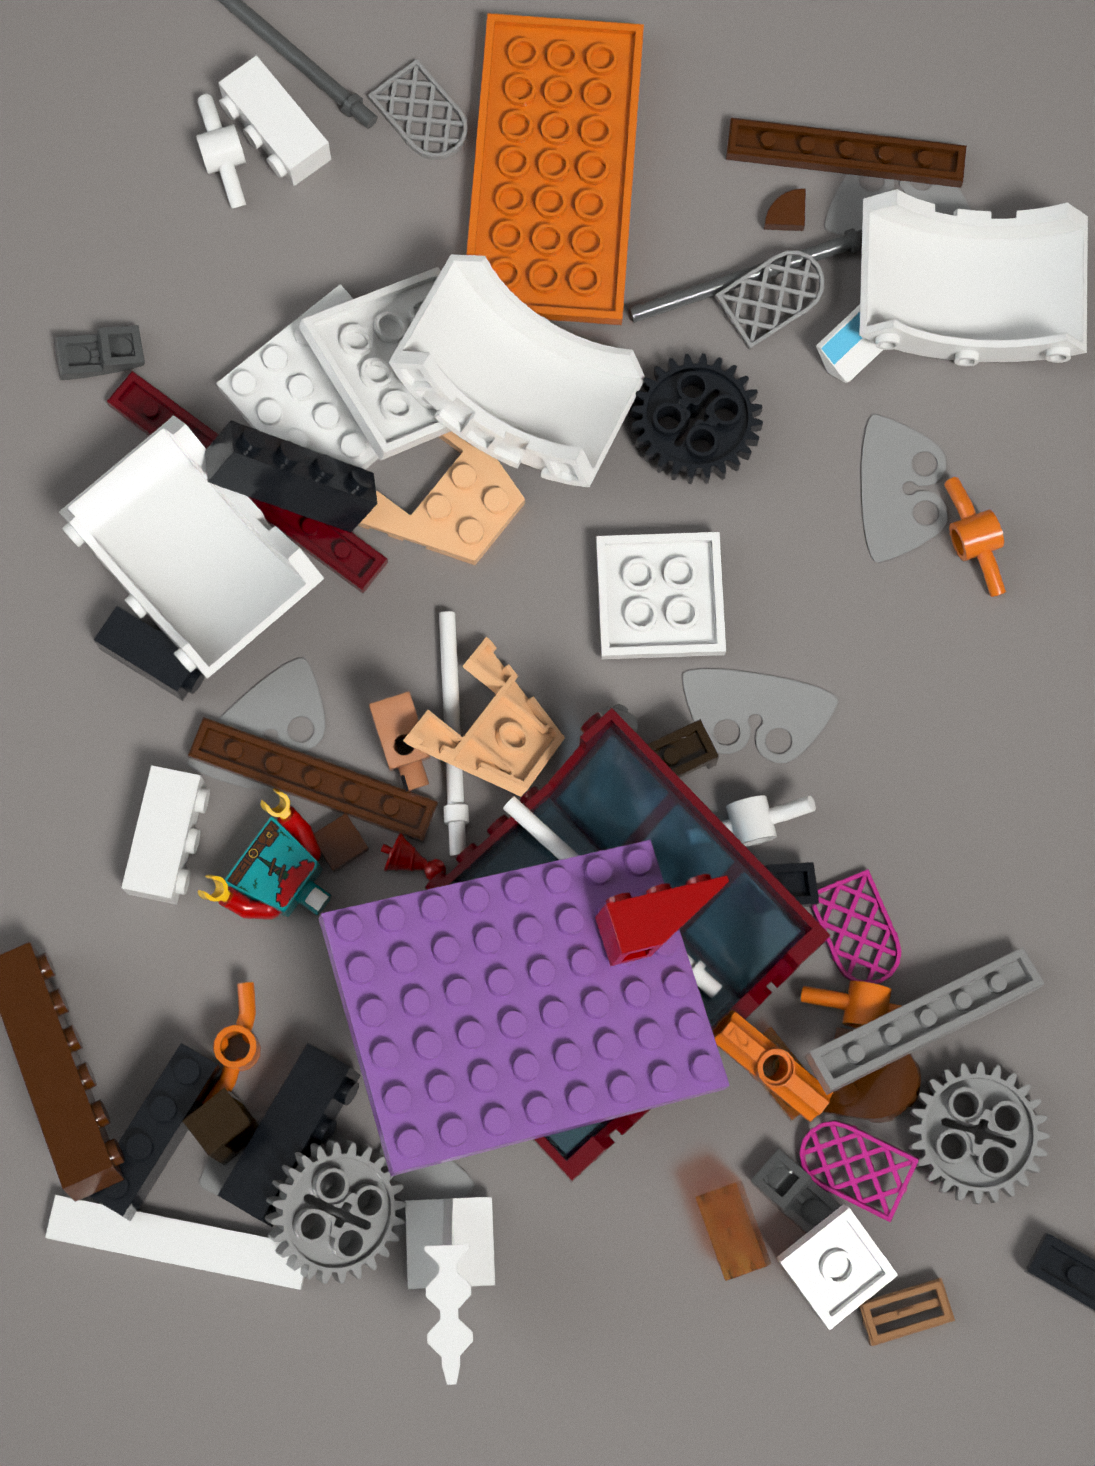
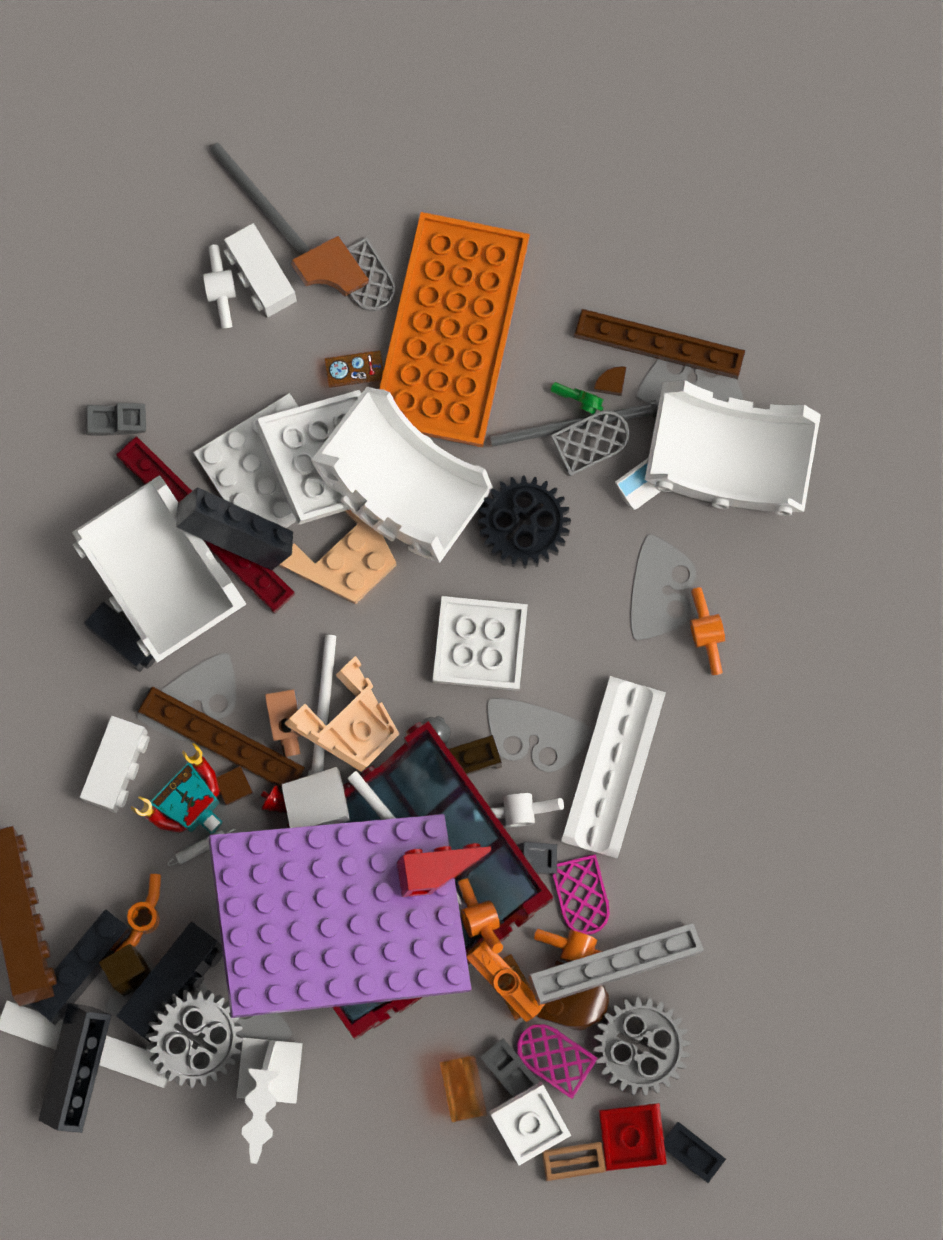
camera: 10 degrees right, 0 degrees up
(167, 1280) = (74, 1068): none -> black brick
(297, 941) = (194, 850): none -> white piece
(373, 101) = (330, 265): none -> dark orange tile
(426, 240) = (354, 368): none -> clear orange tile
(462, 845) = (316, 800): none -> white tile
(723, 980) = (479, 917): none -> orange piece
(761, 241) = (588, 401): none -> green plate
(875, 744) = (613, 767): none -> white plate
(986, 1265) = (632, 1137): none -> red tile

